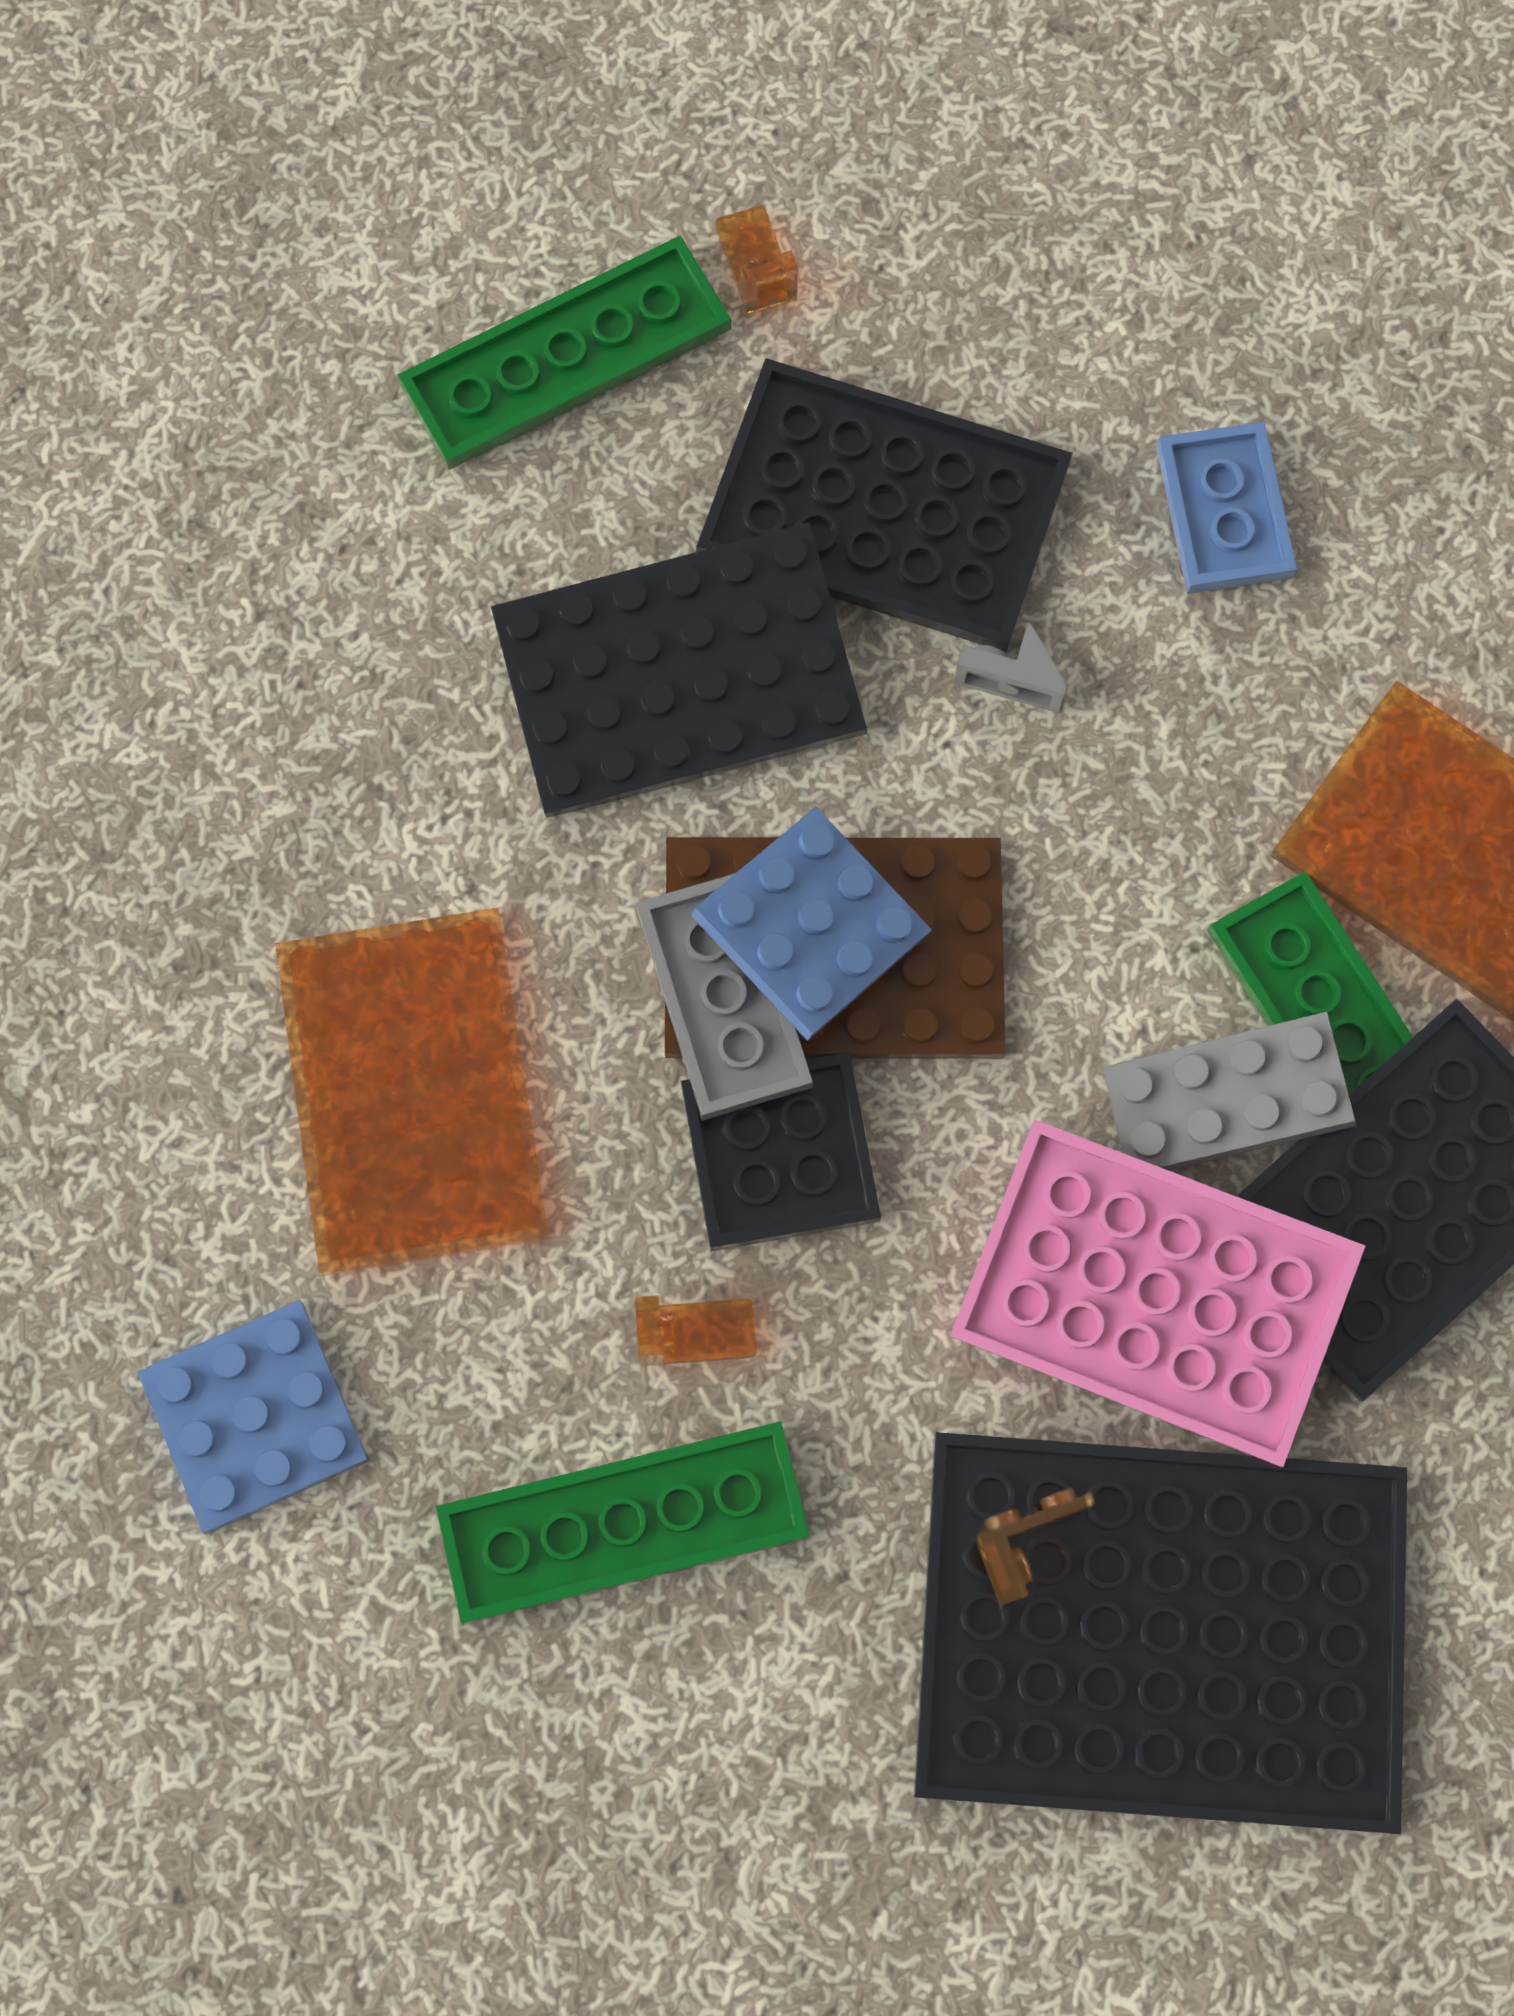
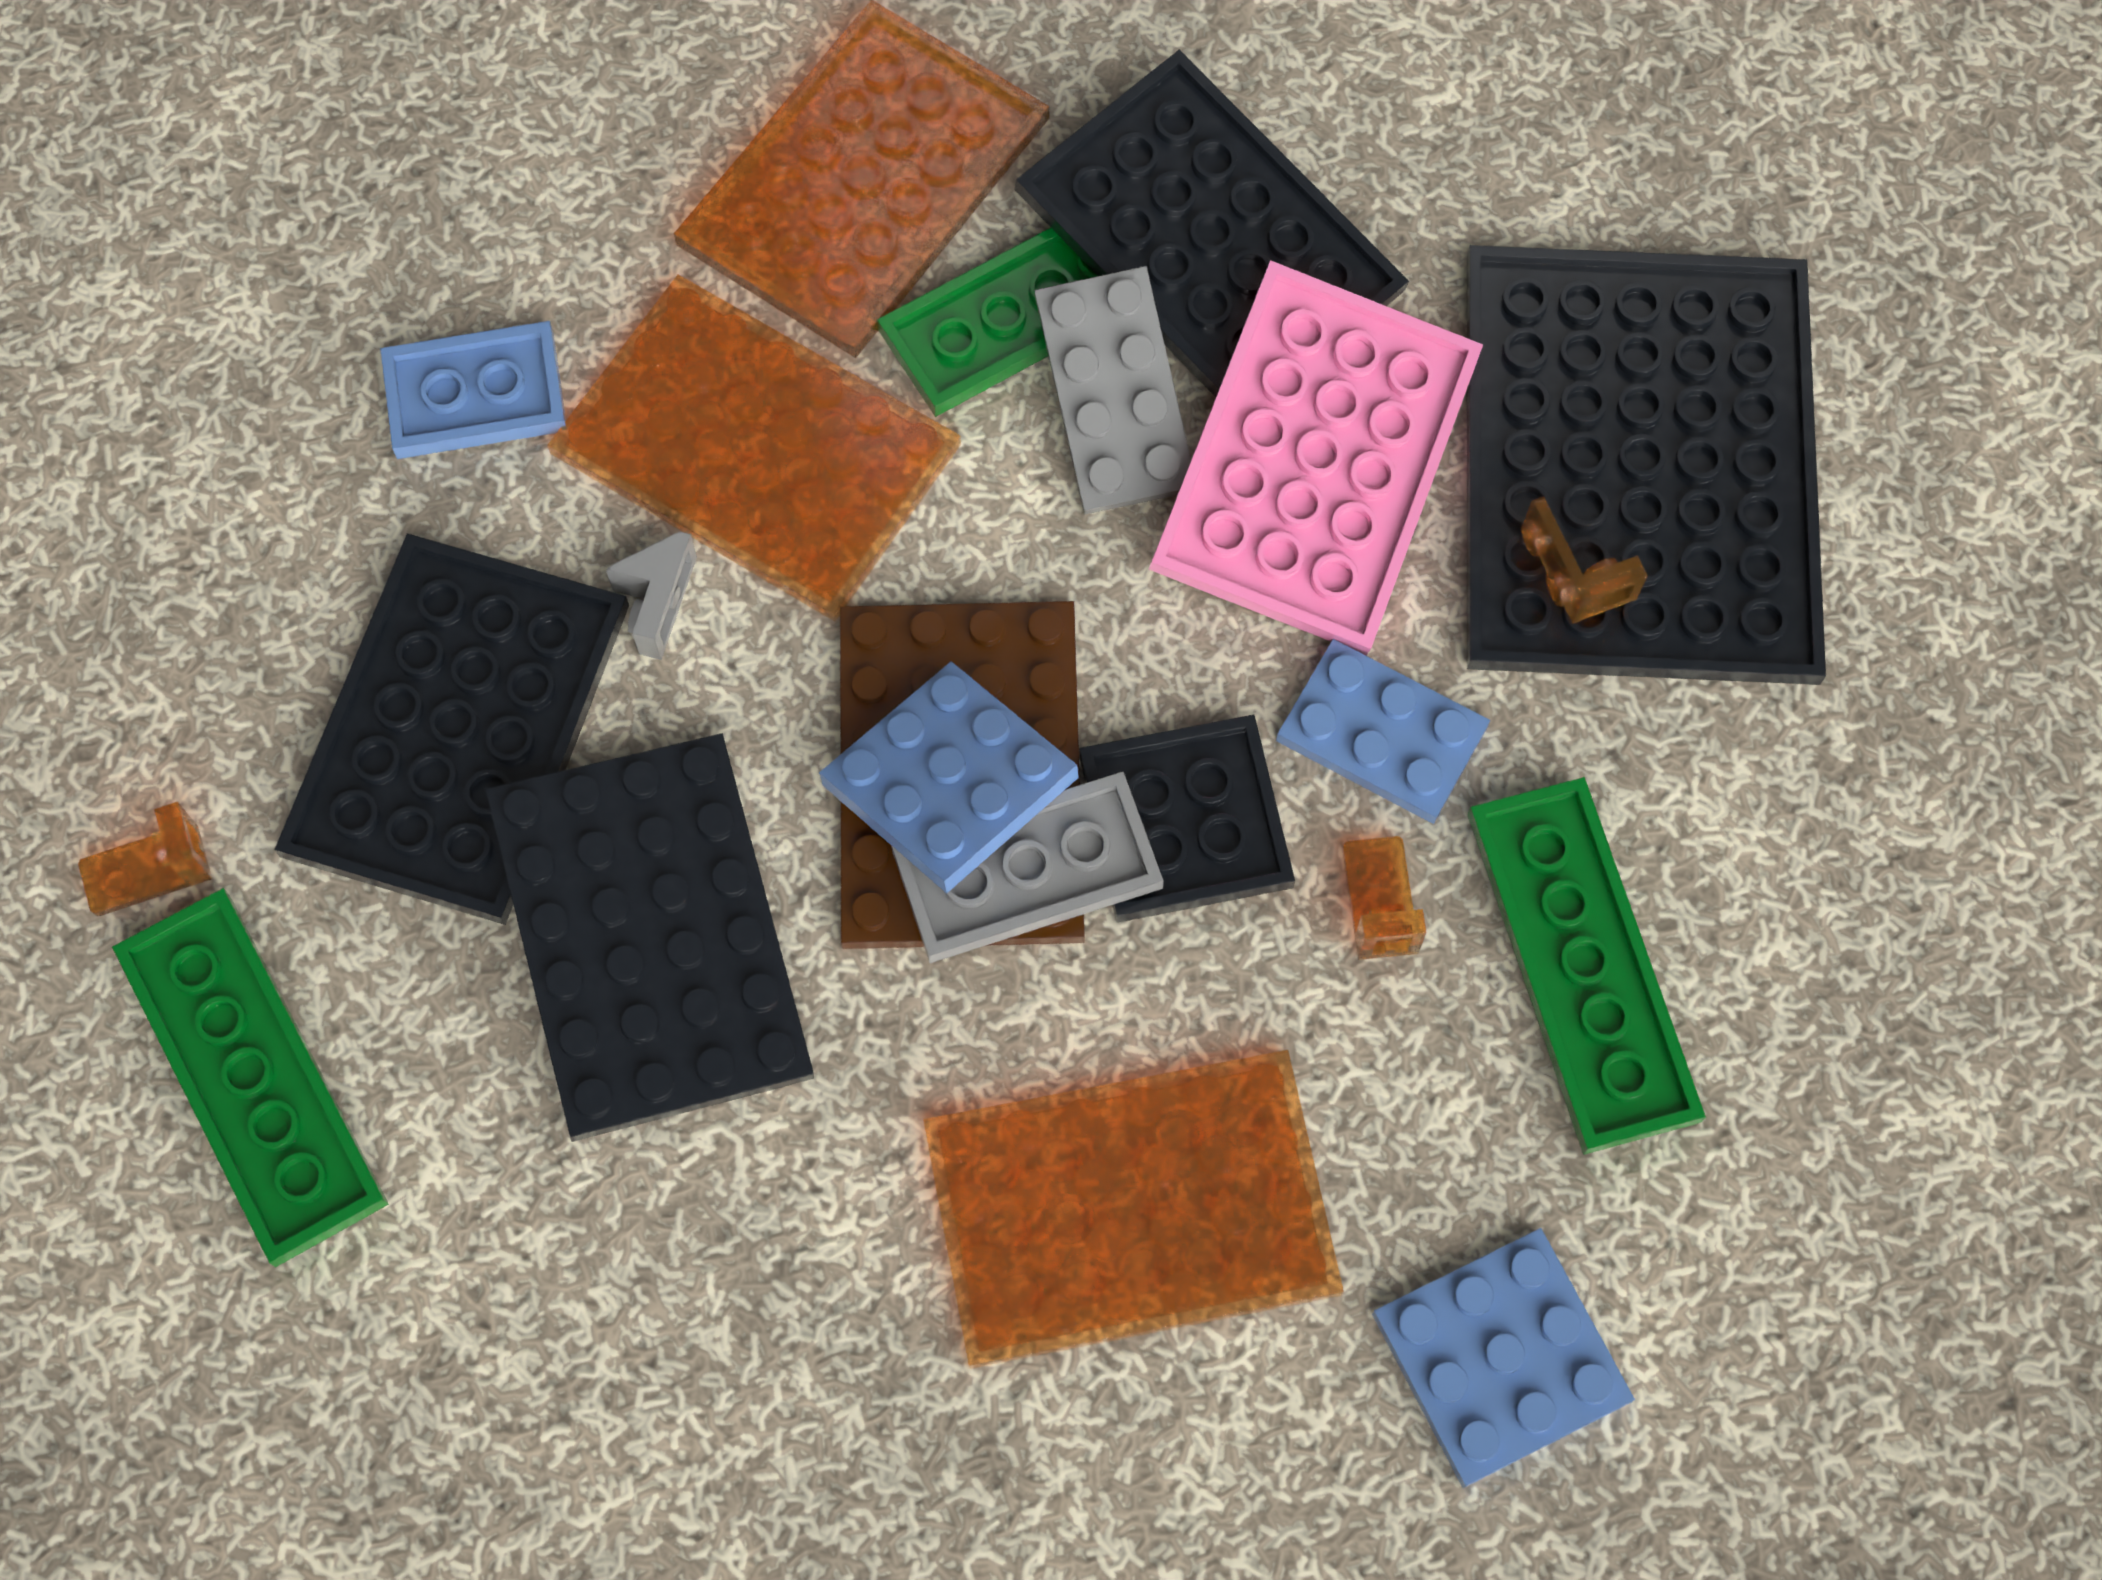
camera: 90 degrees left, 5 degrees down
(869, 1347) = (1383, 731): none -> medium blue plate
(1173, 764) = (755, 446): none -> clear orange plate

